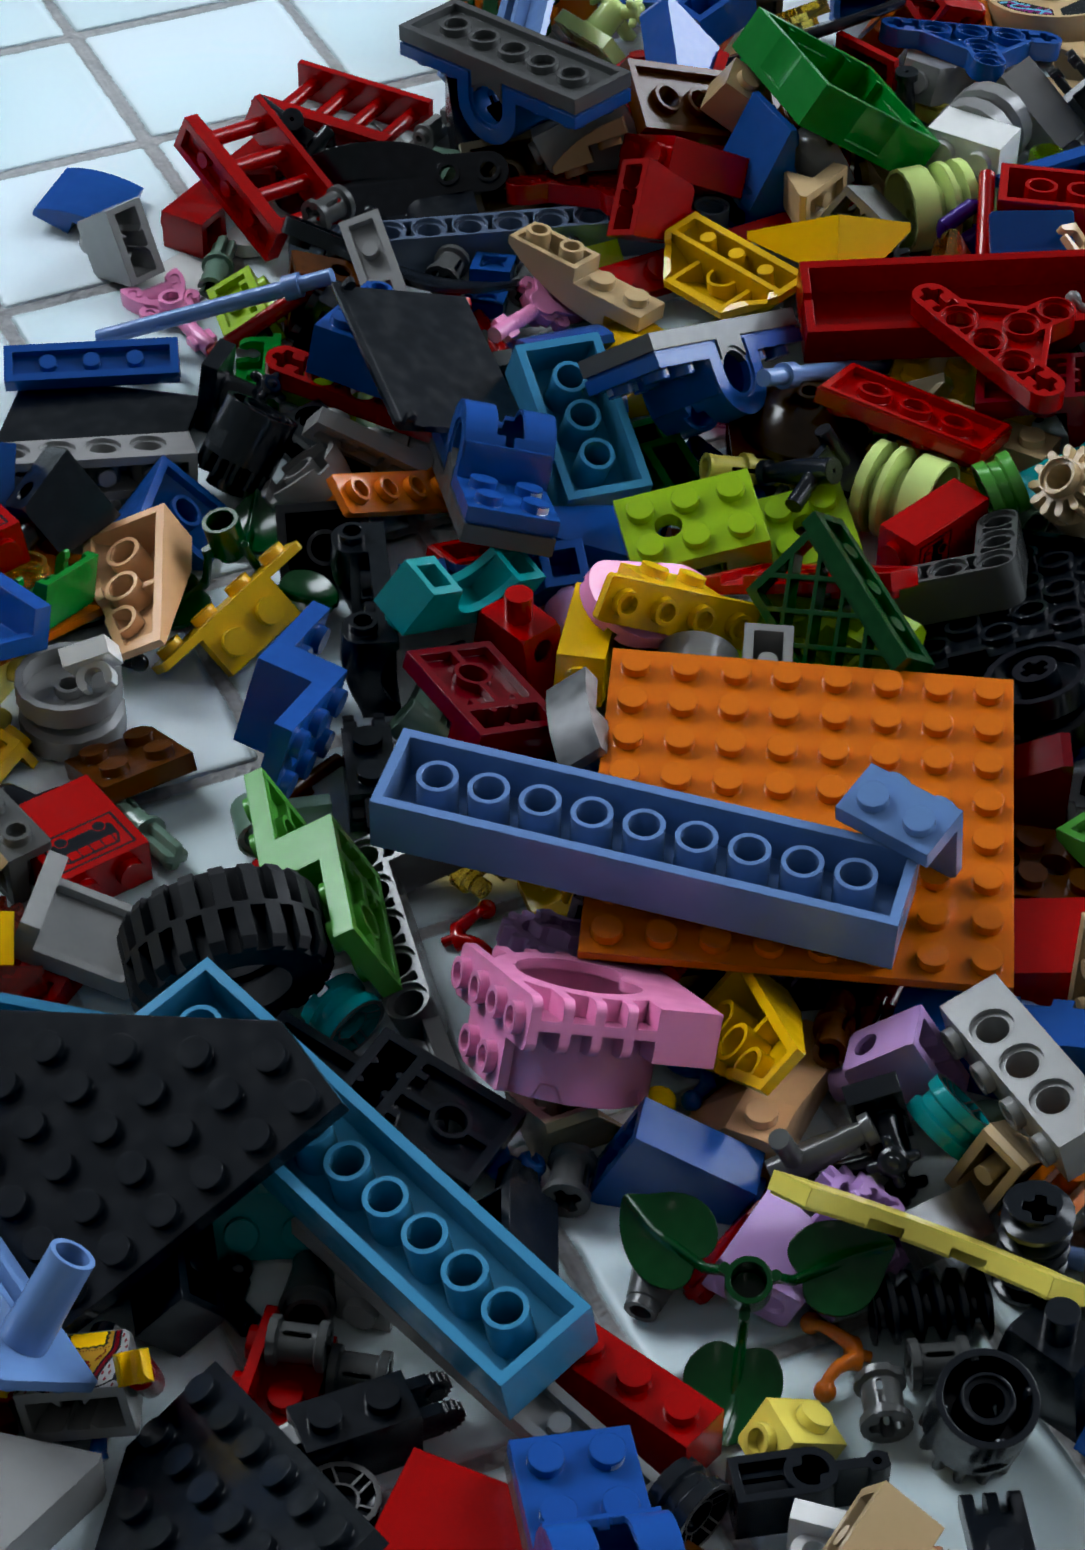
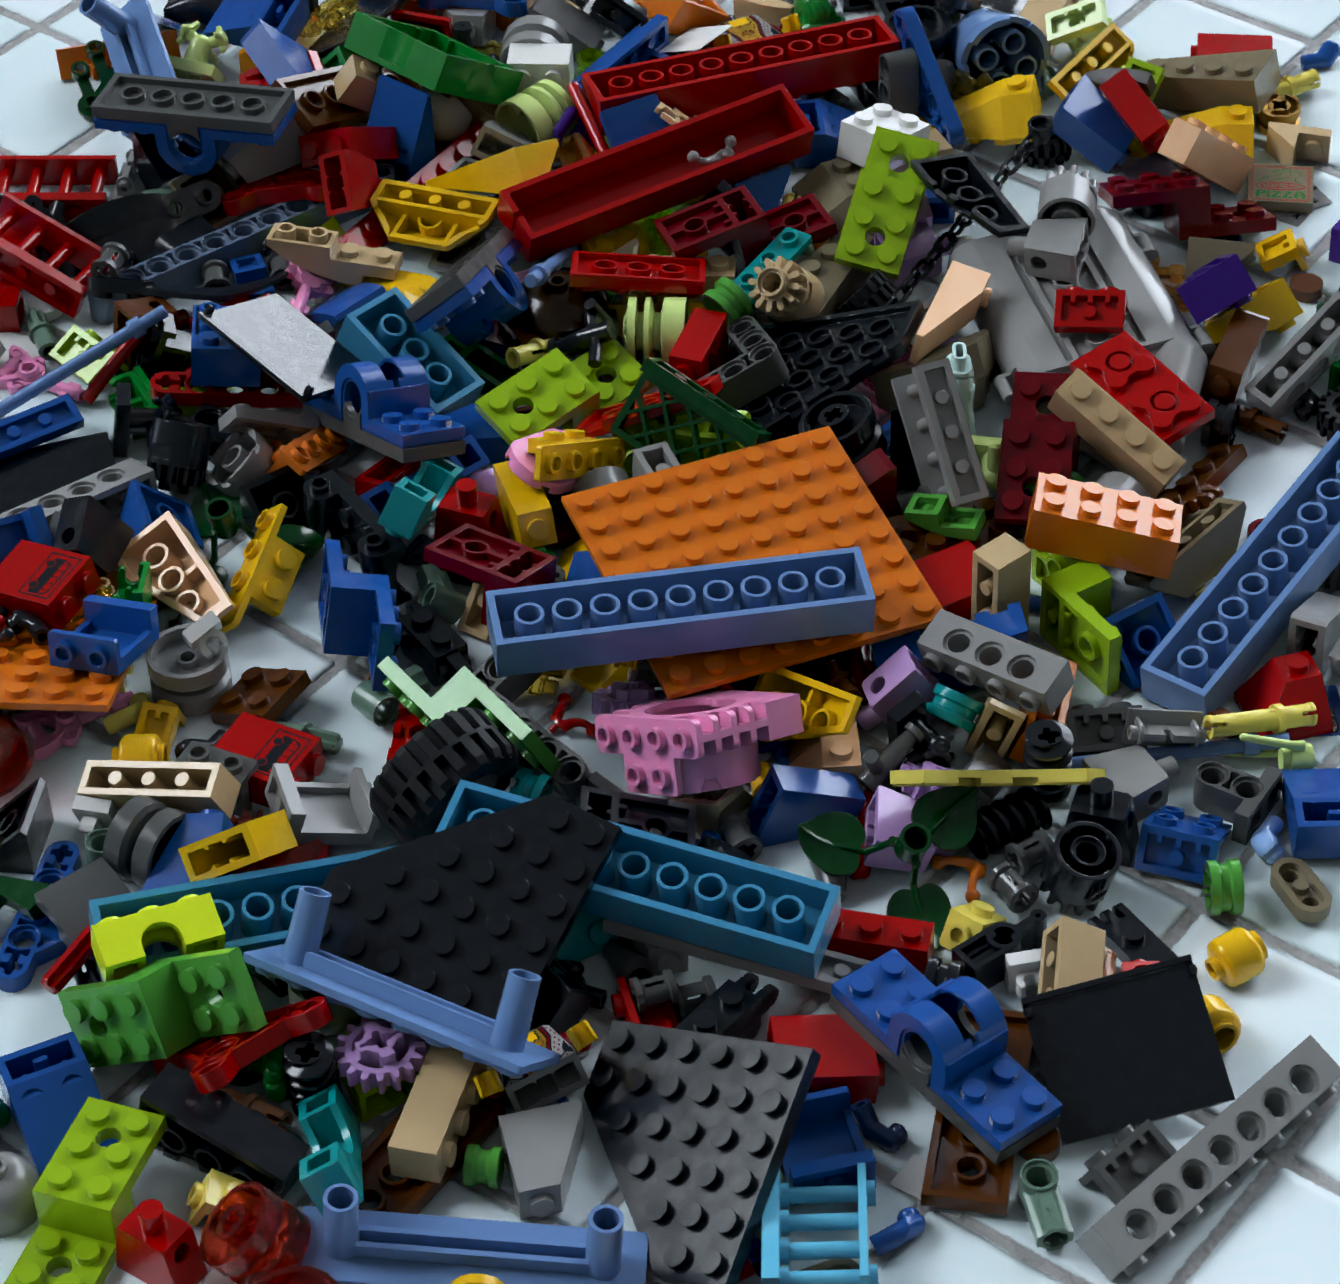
camera: 25 degrees left, 0 degrees up
(371, 250) = (177, 284): light grey plate -> none
(574, 724) = (567, 551): flat silver slope -> none
(580, 154) = (270, 162): medium nougat slope -> none
(810, 196) = (453, 142): tan slope -> none
(905, 819) = (838, 531): medium blue bracket -> none
(993, 325) = (658, 193): red beam -> none

